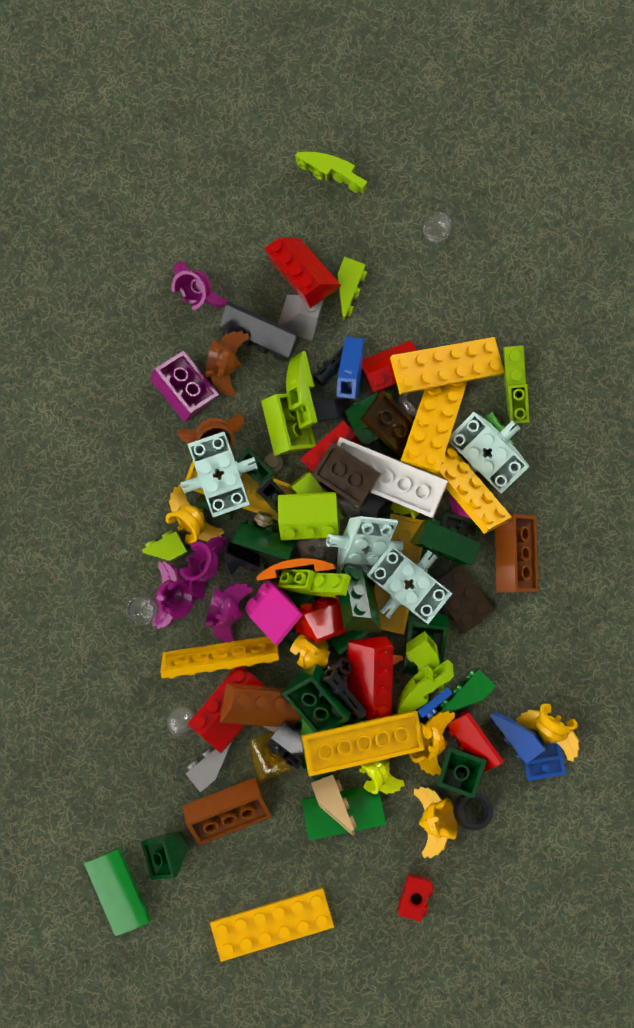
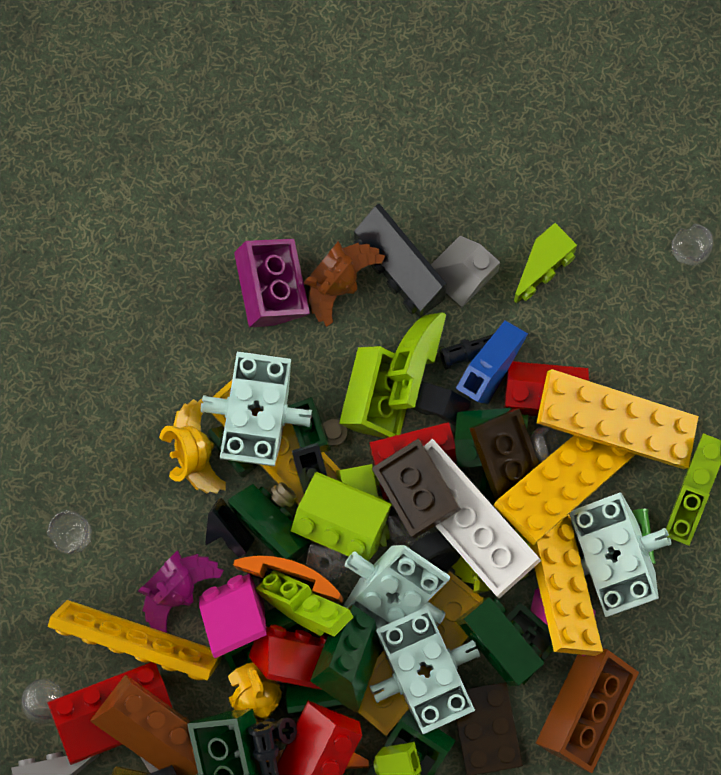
camera: 25 degrees right, 10 degrees down
(168, 548) = (144, 471): lime slope -> none
(172, 596) = (117, 535): magenta helmet -> none
(194, 287) = (348, 169): magenta helmet -> none
(202, 565) = (175, 514): magenta helmet -> none
(211, 427) = (281, 347): dark orange helmet -> none
(301, 269) = (493, 212): red slope -> none
(326, 165) = (590, 103): lime slope -> none

